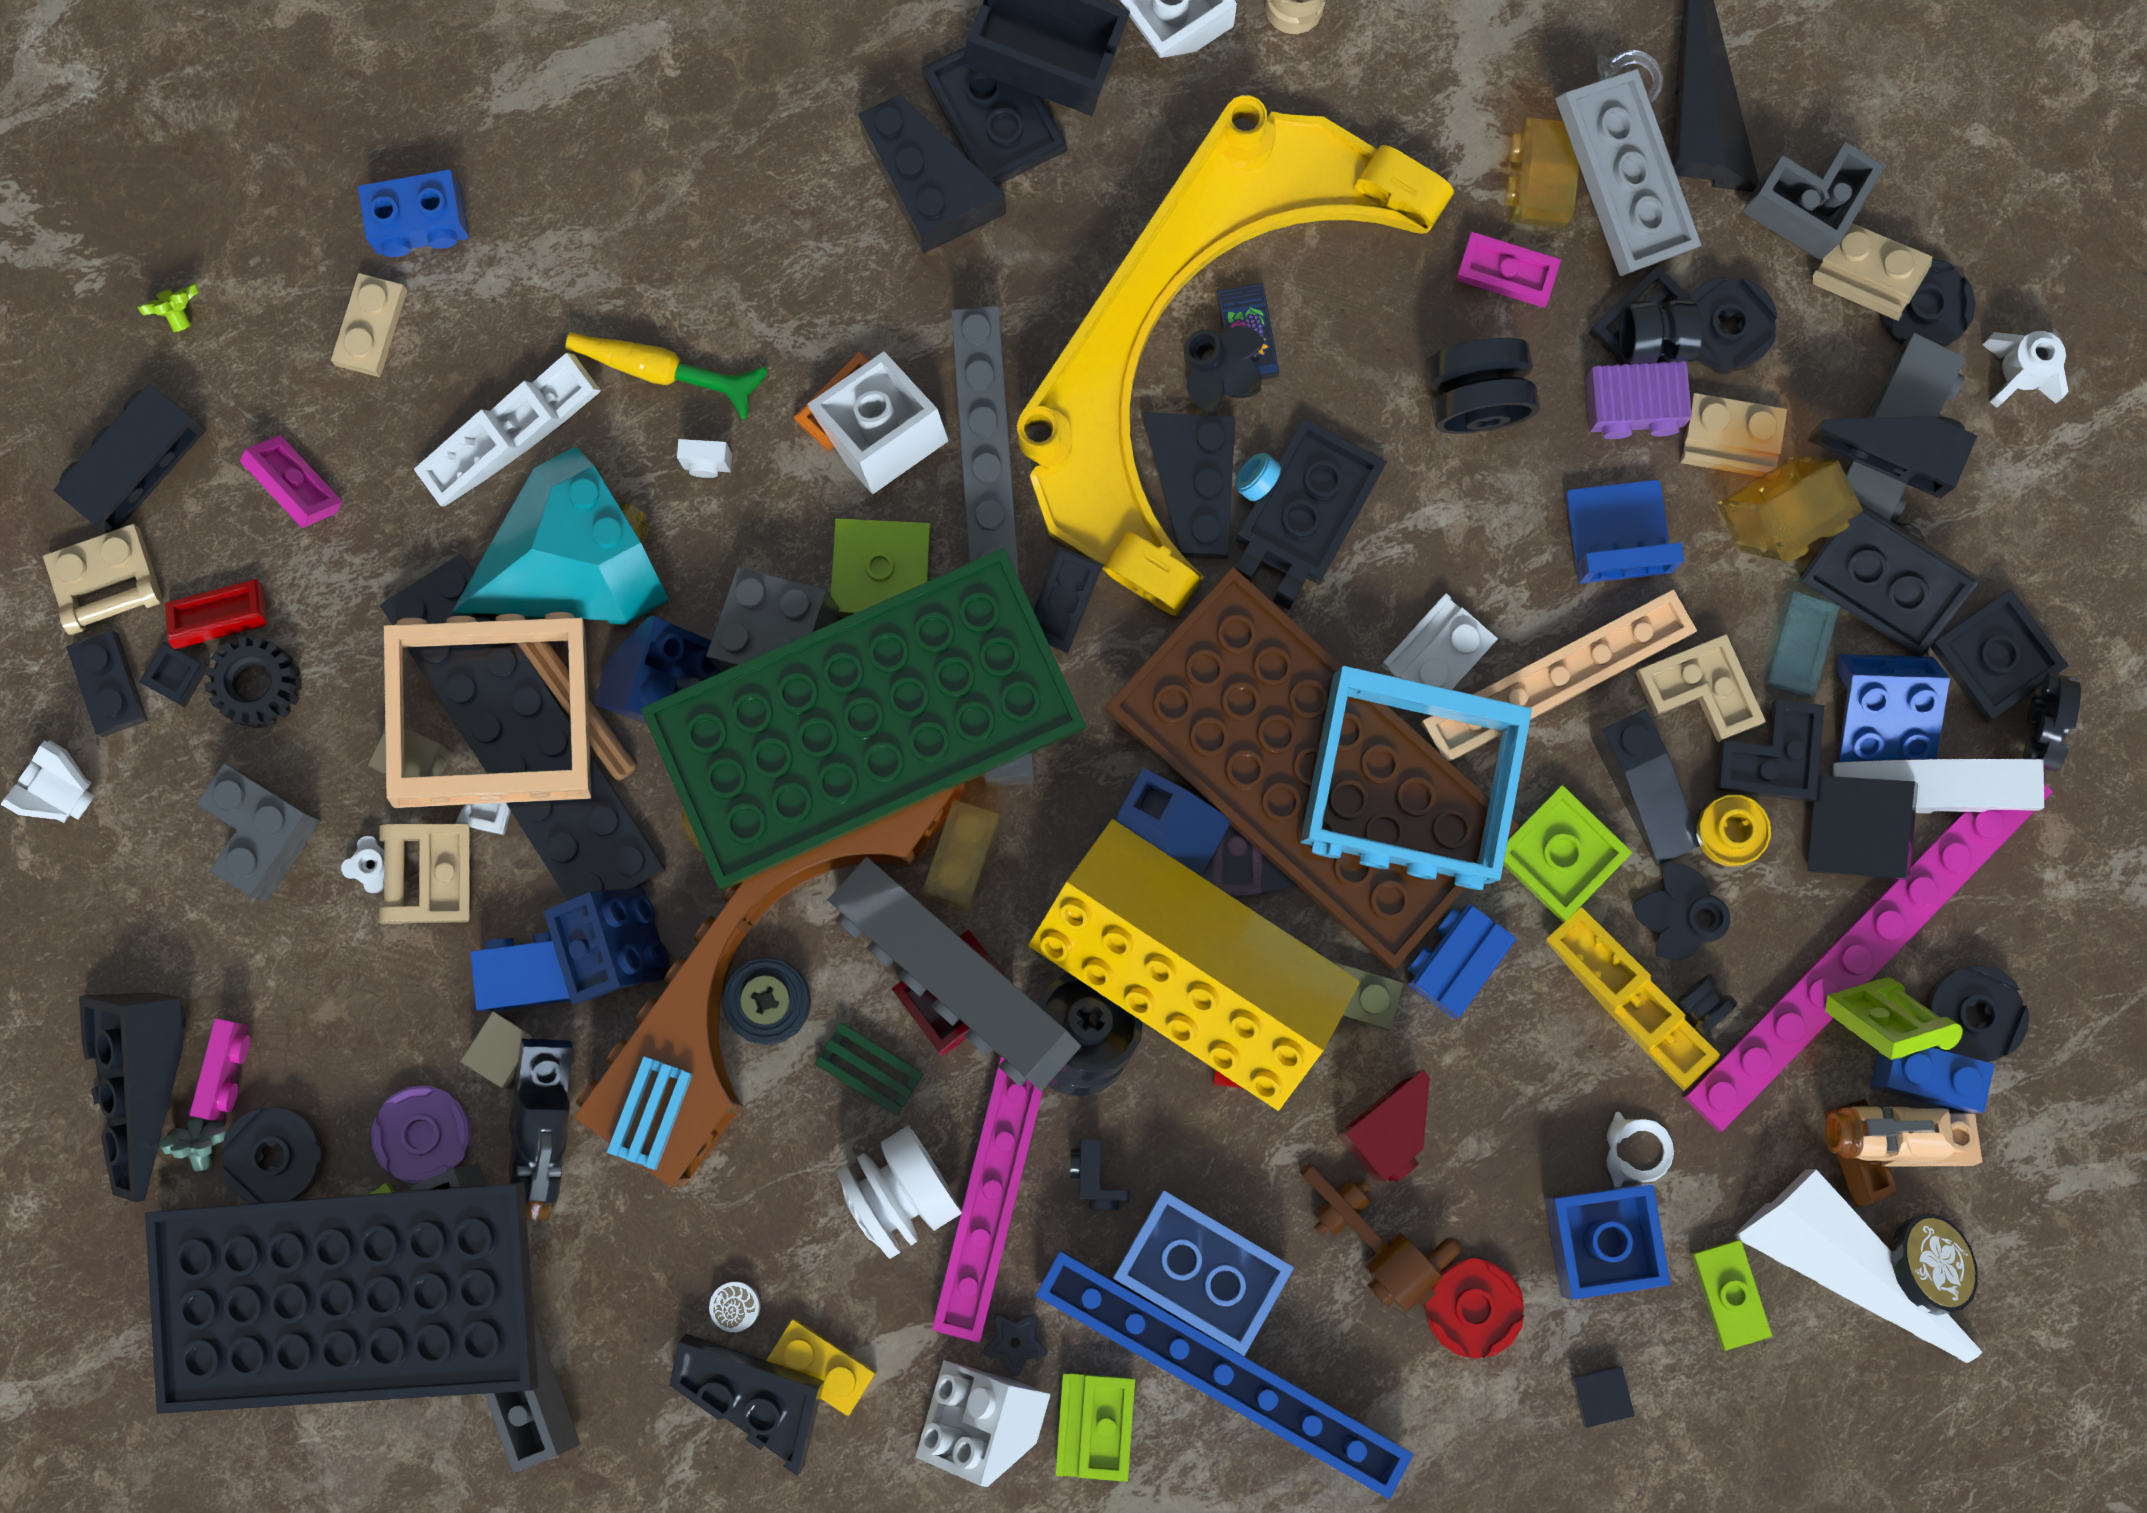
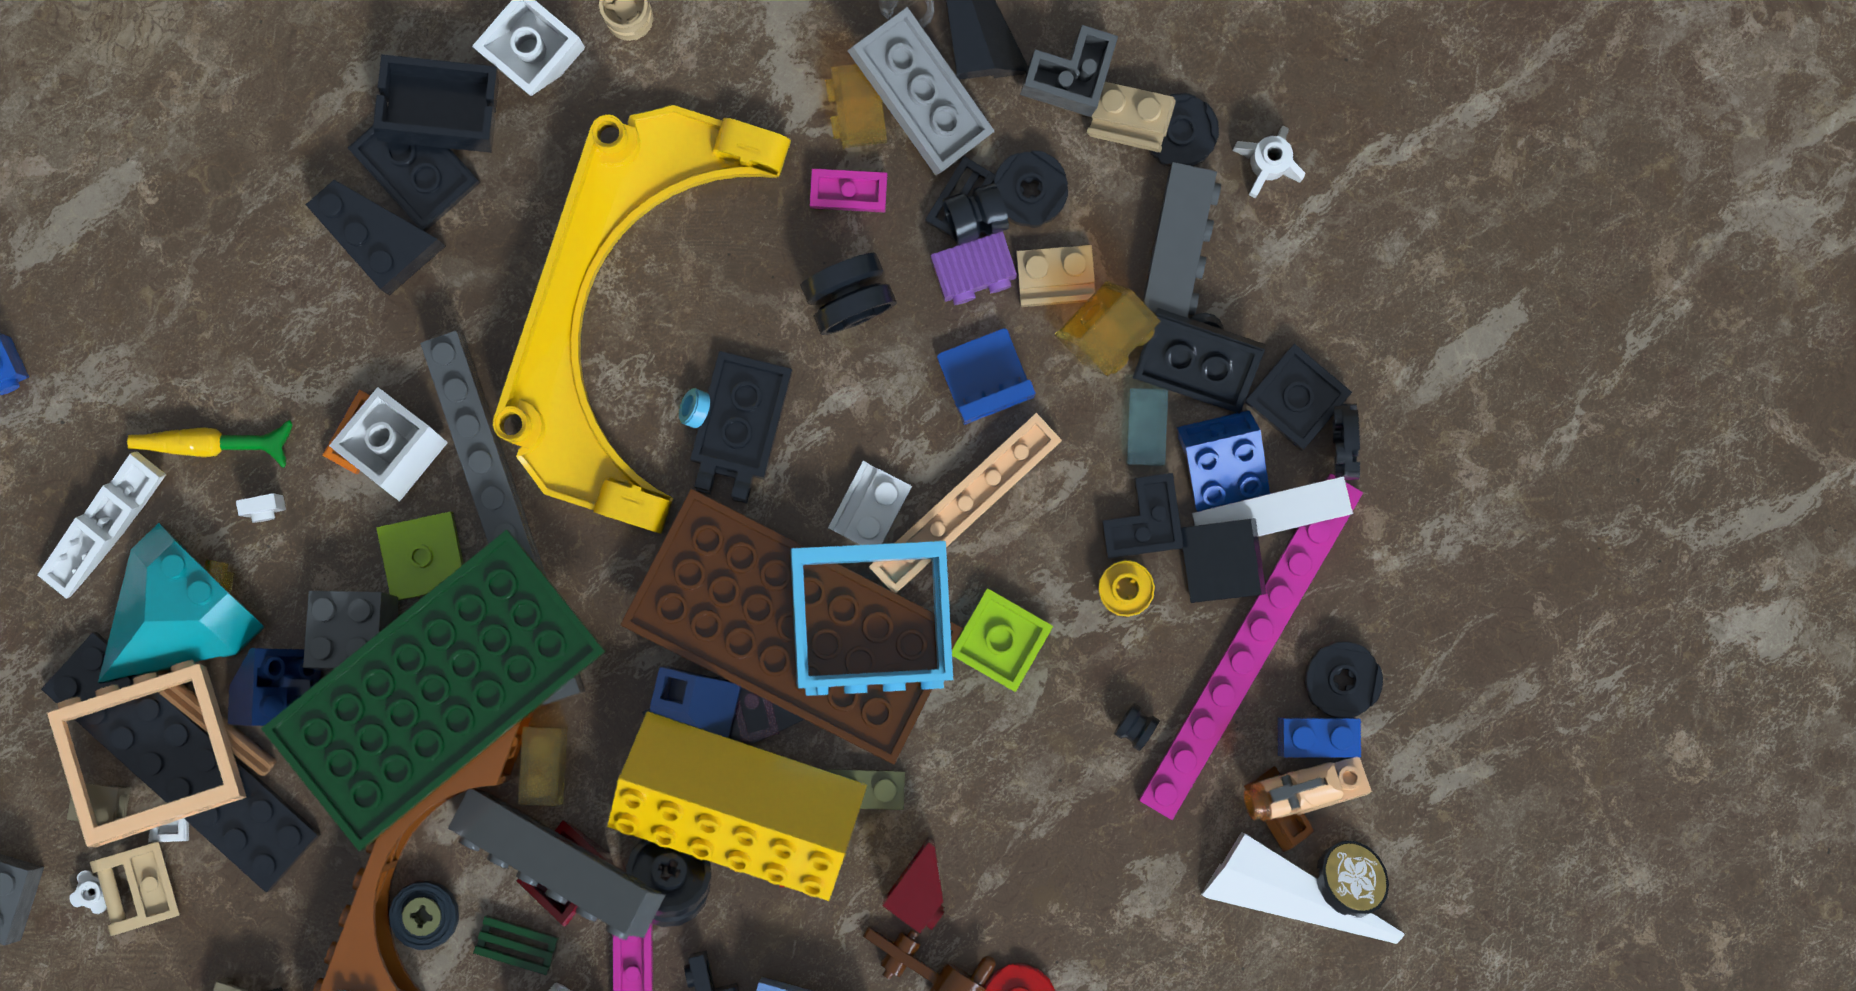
camera: 15 degrees left, 5 degrees up
(517, 975) = (234, 945): blue brick -> none
(607, 942) = (289, 906): dark blue bracket -> none
(1066, 596) = (569, 544): black plate -> none
(1196, 478) = (648, 420): black wing -> none
(1226, 370) = (650, 327): black plate -> none
(1249, 308) = (659, 294): tile -> none
(1460, 960) = (942, 744): blue brick -> none
(1607, 1241) = (1103, 928): blue brick -> none
(1622, 1170) = (1104, 868): white piece -> none
(1632, 998) = (1081, 737): yellow slope -> none
(1648, 785) = (1054, 572): black slope -> none
(1675, 913) = (1097, 660): black plate -> none
(1711, 676) = (1079, 471): tan plate -> none
(1731, 1295) = (1208, 940): lime plate -> none
(1891, 1019) = (1270, 712): lime plate -> none
(1913, 450) = (1191, 259): black slope -> none

